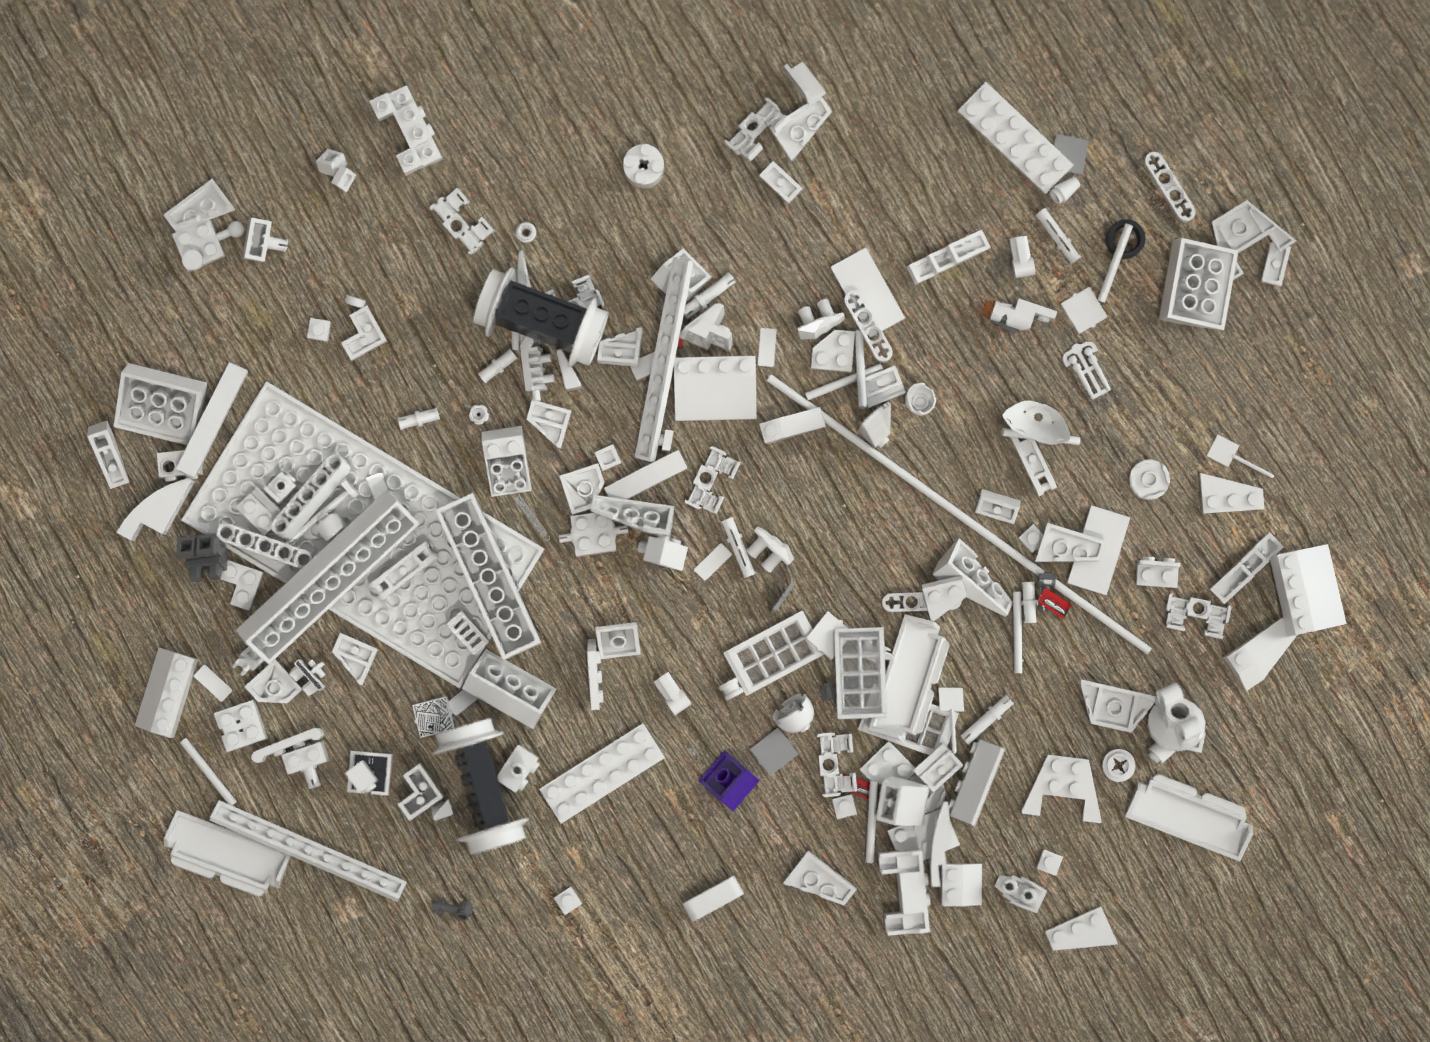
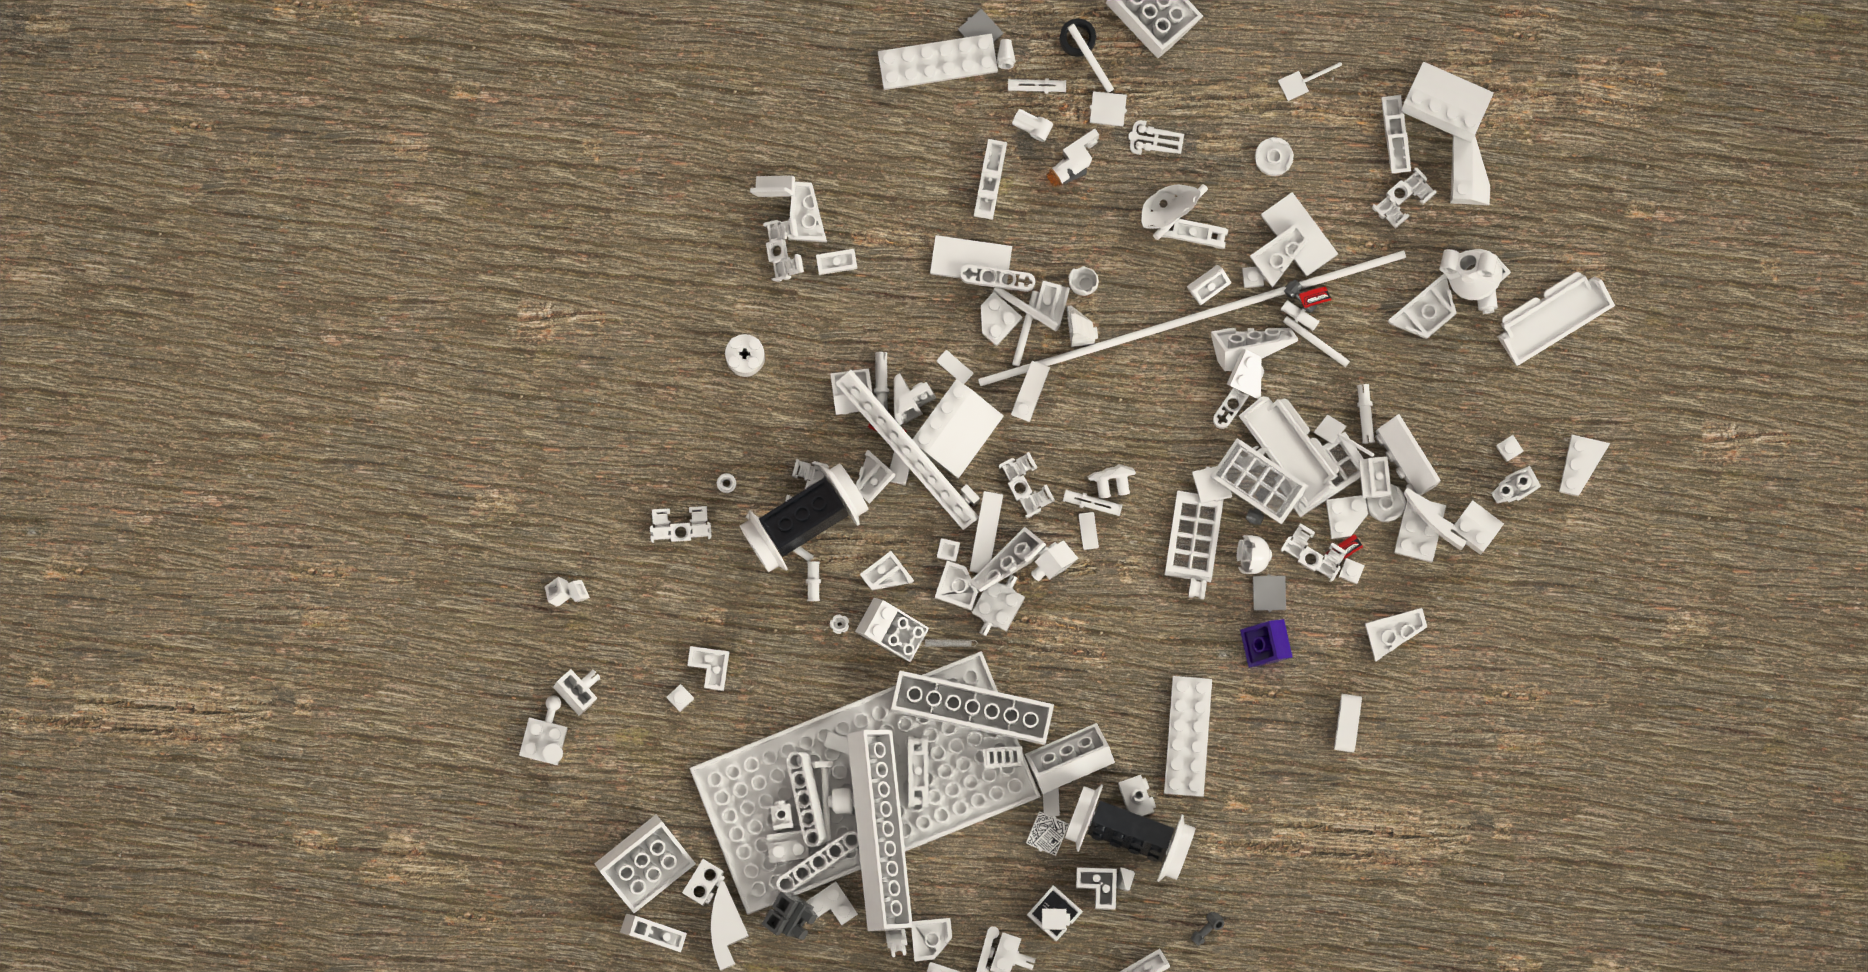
camera: 50 degrees left, 5 degrees down
(199, 207) = (514, 718): white wing -> none
(211, 420) = (689, 831): white tile -> none
(314, 683) = (934, 906): white hips -> none
(355, 301) = (680, 653): white tile -> none
(355, 656) = (955, 858): white wing -> none
(410, 119) = (579, 508): white bracket -> none
(418, 418) = (808, 672): white pin -> none
(530, 350) = (822, 548): white piece -> none
(568, 900) = (1266, 835): white plate -> none
(570, 379) = (862, 532): white slope -> none
(595, 676) = (1110, 683): white wing -> none
(618, 640) = (1095, 647): white slope -> none
(674, 696) = (1173, 636): white piece -> none
(782, 598) = (1158, 500): light grey piece -> none
(814, 328) = (968, 320): white connector -> none
(871, 821) = (1378, 558): white bar -> none
(902, 802) = (1381, 522): white slope -> none
(911, 892) = (1454, 567): white bracket -> none
(1064, 778) = (1455, 388): white wing -> none
(1109, 763) = (1480, 334): white gear -> none
(1157, 573) = (1350, 203): white bracket -> none
(1228, 496) = (1330, 107): white wing -> none

